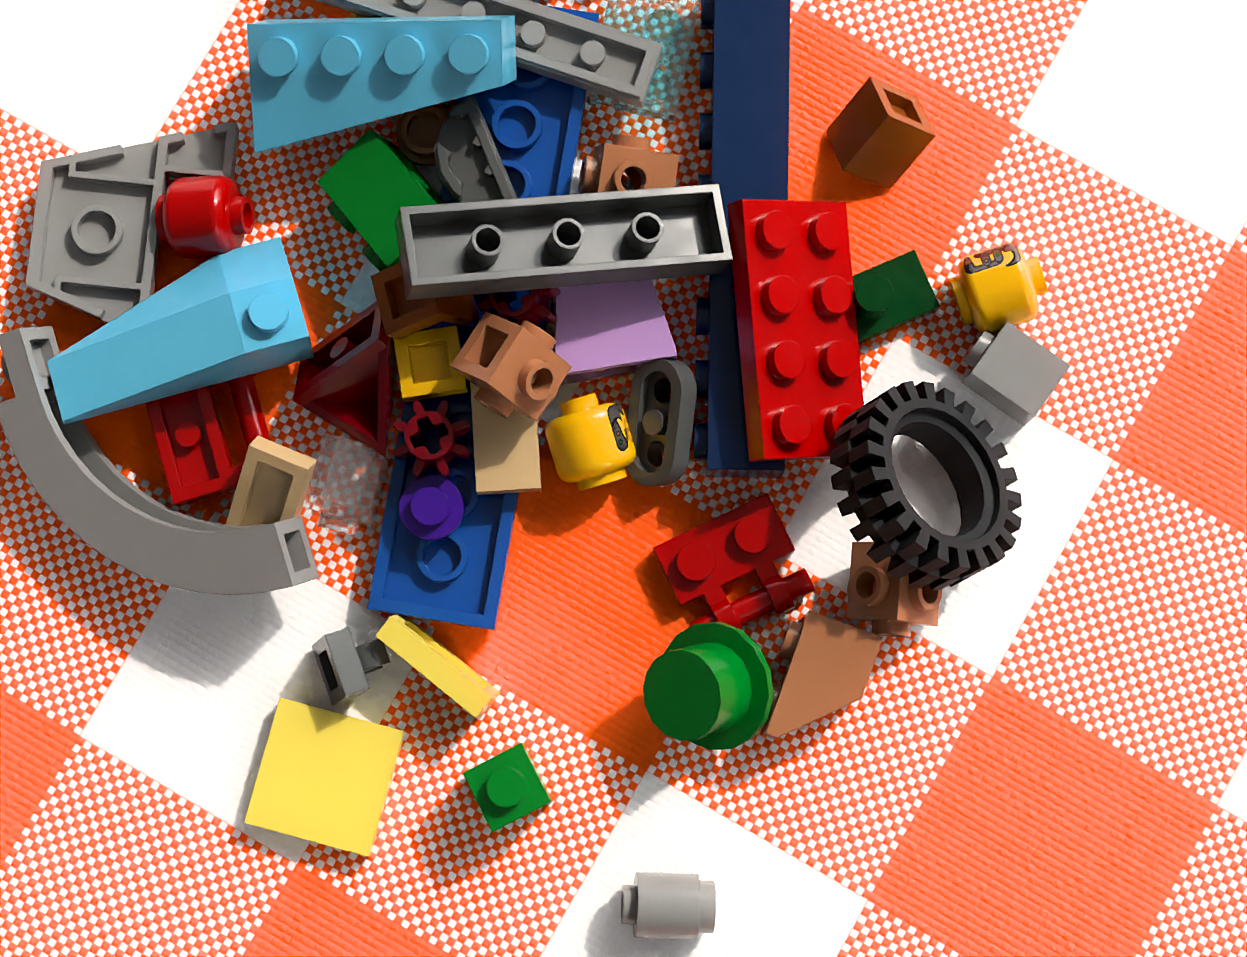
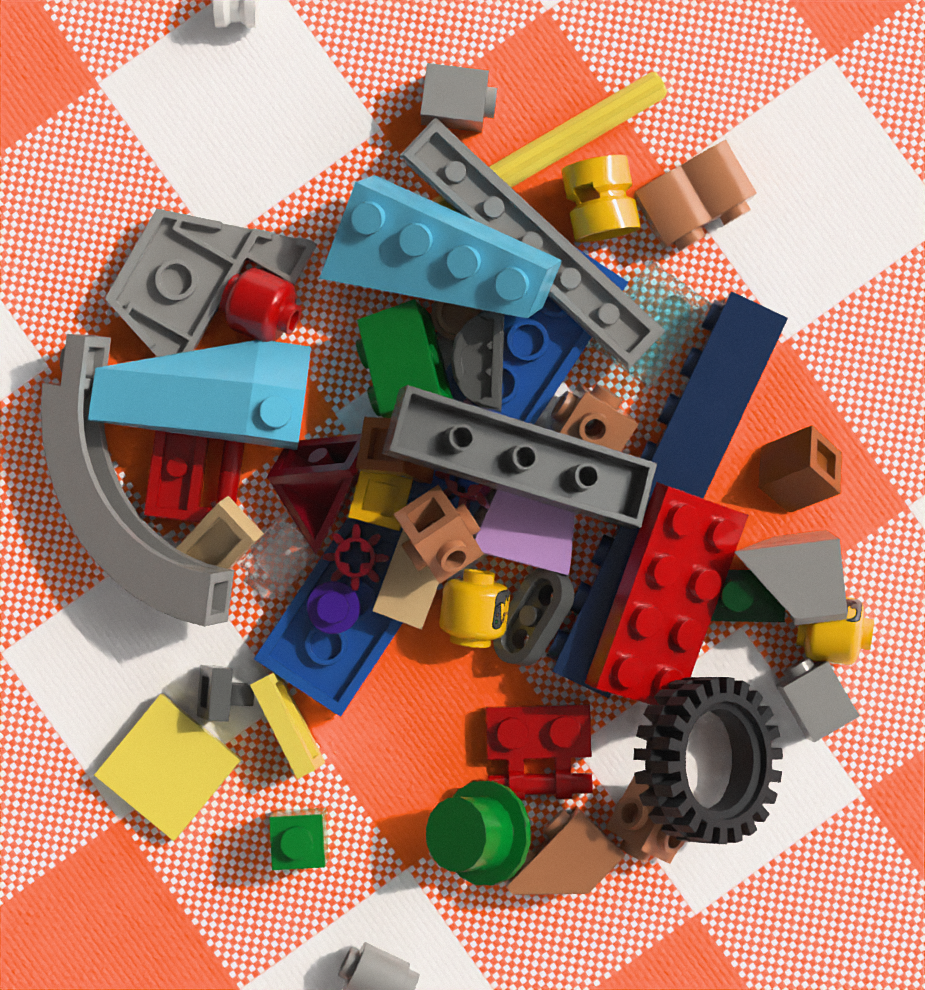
camera: 25 degrees right, 5 degrees up
(938, 239) = (802, 574): none -> light grey slope

